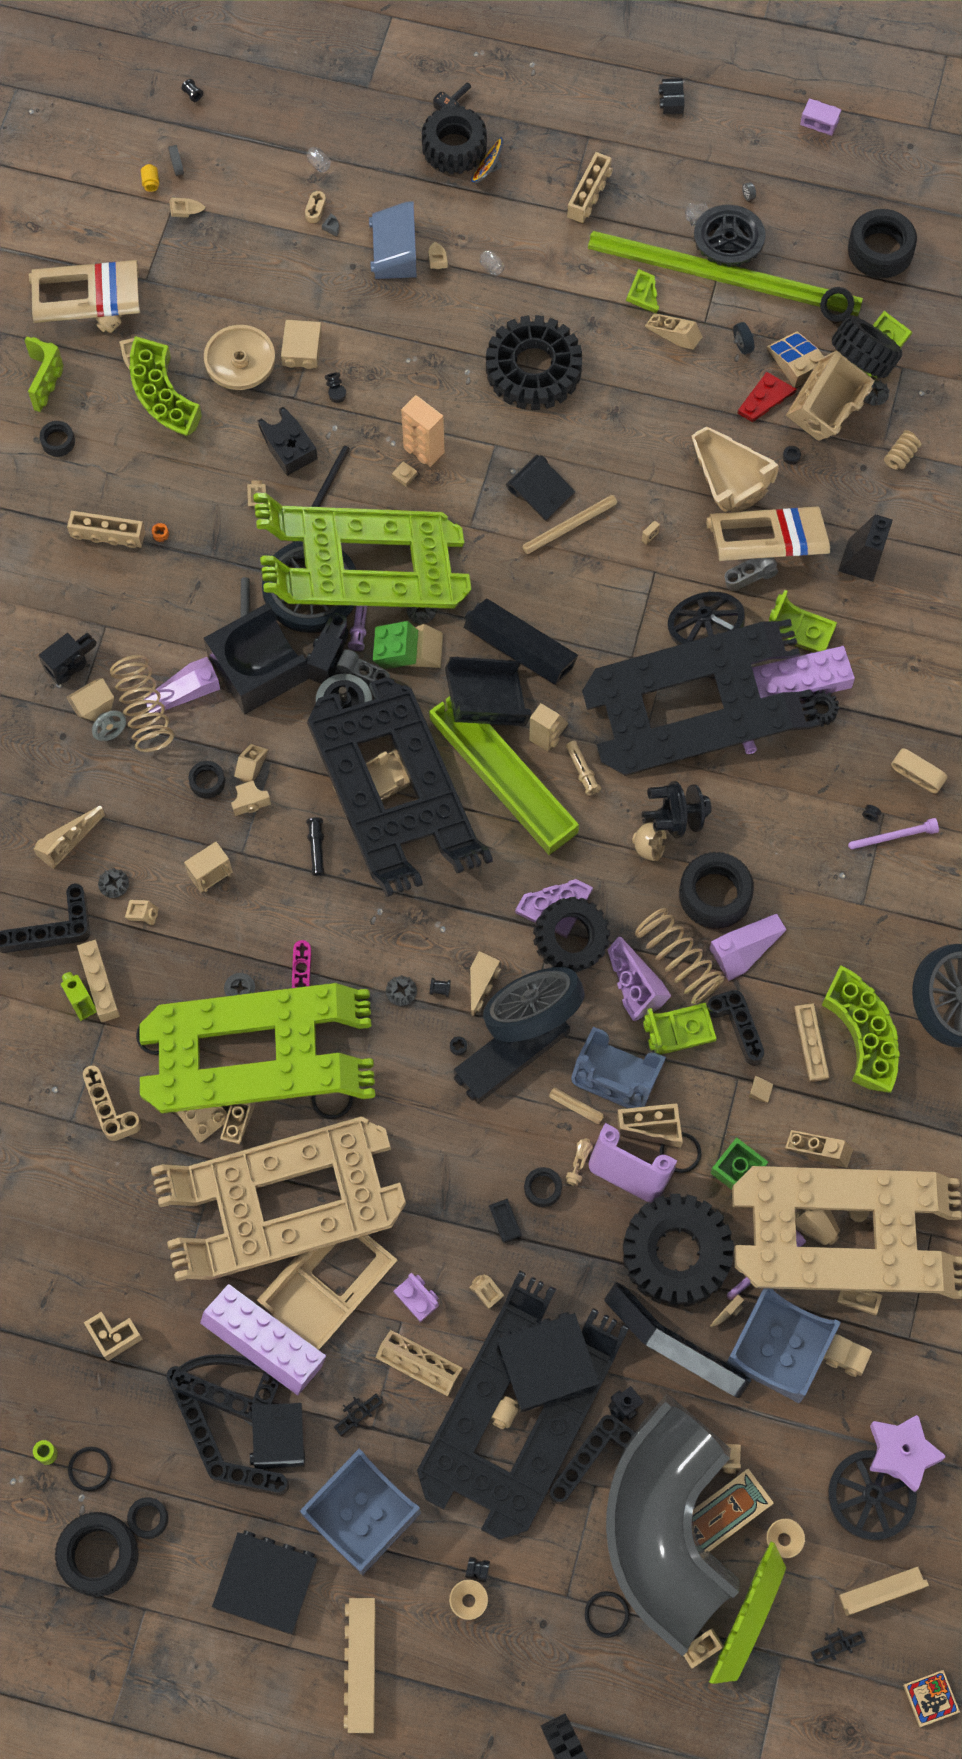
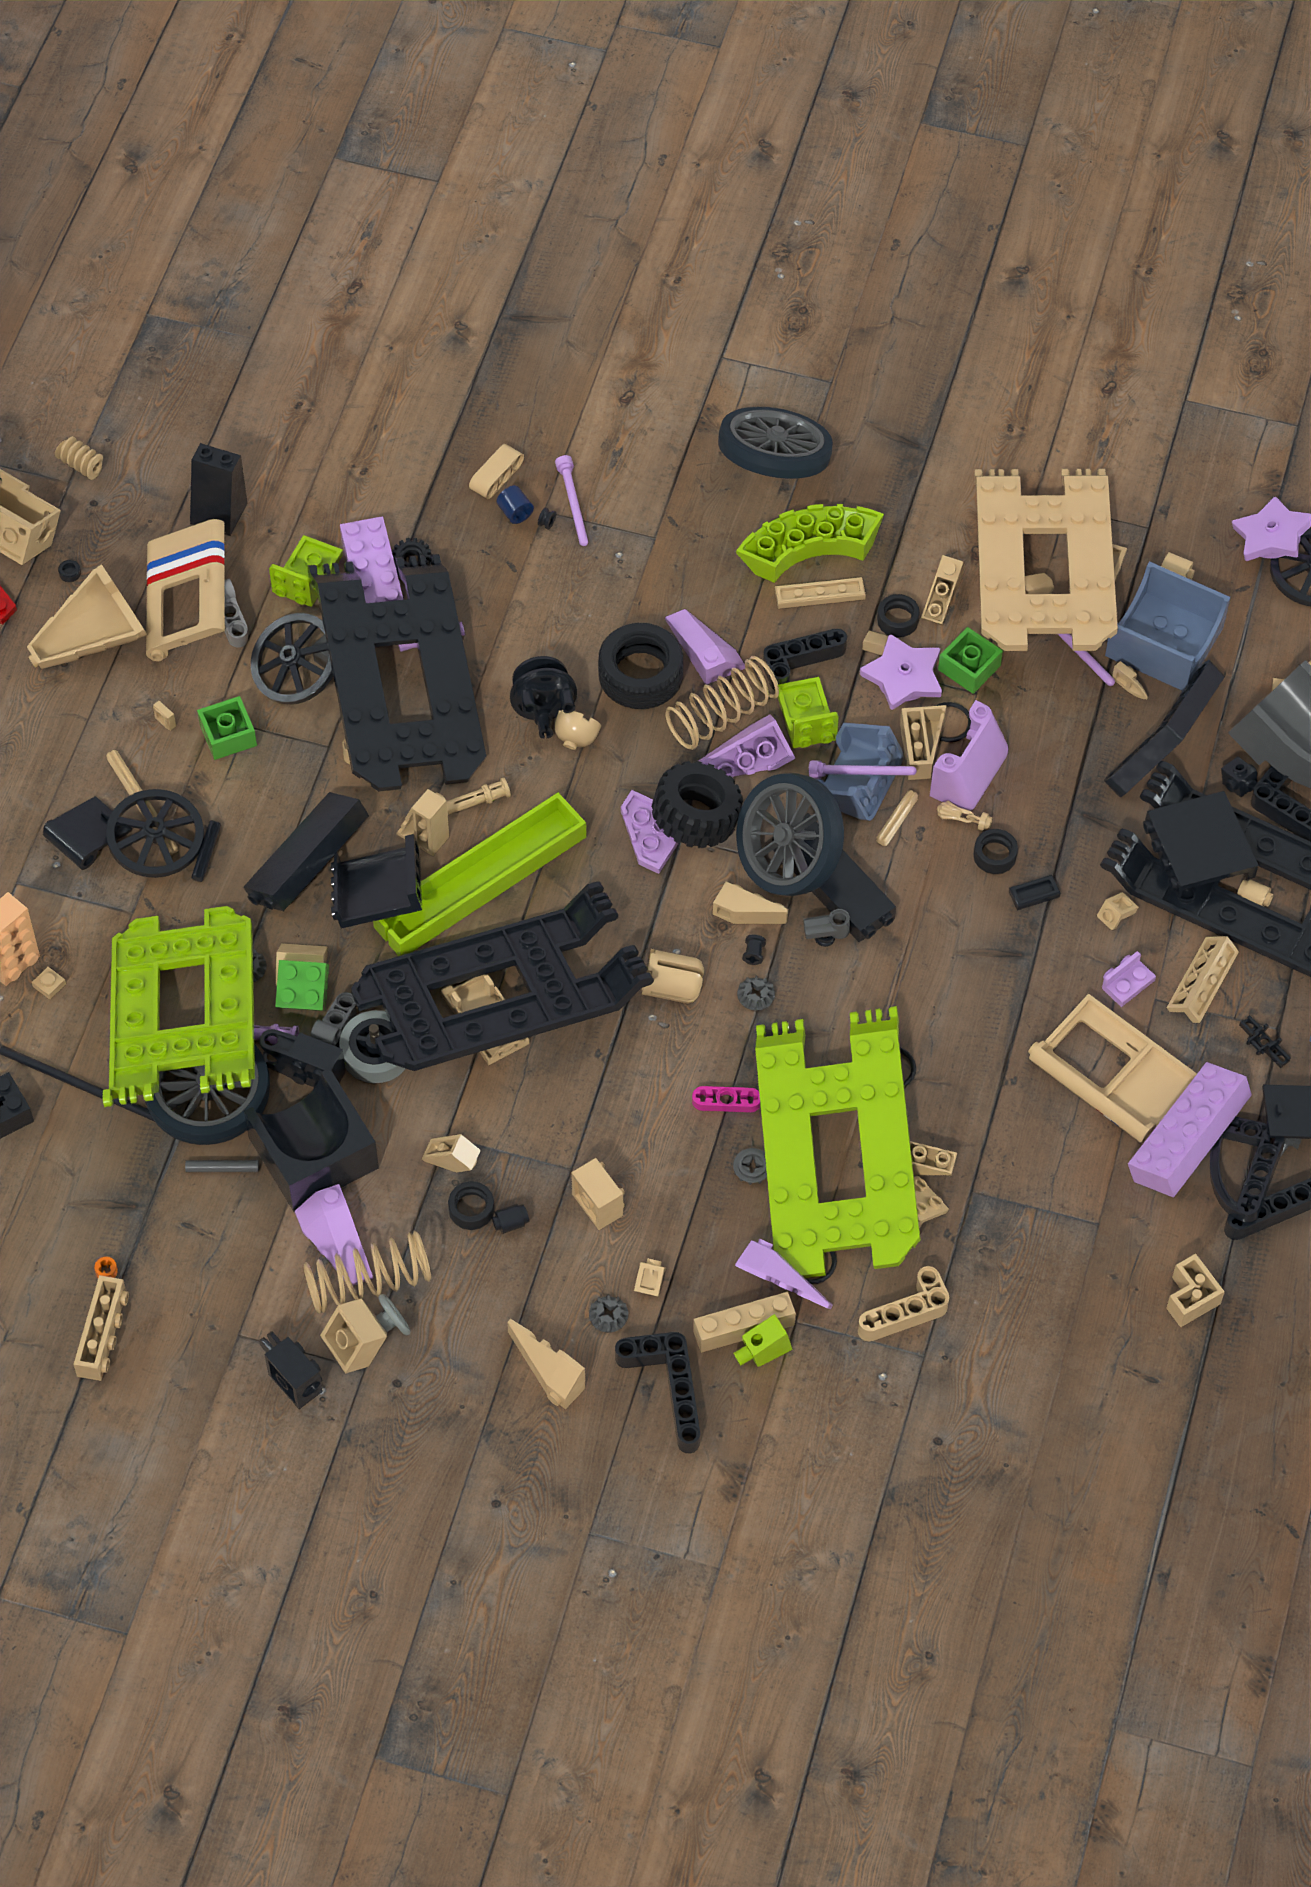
camera: 90 degrees left, 10 degrees down
(140, 1000) = (771, 1266): none -> lavender wedge
(194, 807) = (510, 1218): none -> black brick
(234, 1181) = (1002, 1164): tan bracket -> none
(249, 799) = (500, 1155): tan brick -> none
(255, 487) = (61, 1150): tan bracket -> none
(316, 837) = (554, 1081): black pin -> none
(418, 920) = (674, 976): none -> tan cylinder
(458, 1041) = (828, 925): none -> dark grey piece
(527, 573) = (206, 851): none -> black axle
(536, 536) = (152, 835): none -> black wheel
(621, 1038) = (818, 769): none -> lavender piece
(637, 576) = (227, 727): none -> bright green brick
(704, 1227) = (1067, 692): black tyre -> none
(720, 1124) = (904, 672): none -> lavender plate
(798, 1096) = (898, 629): none -> black tyre
(882, 785) = (515, 504): none -> dark blue piece

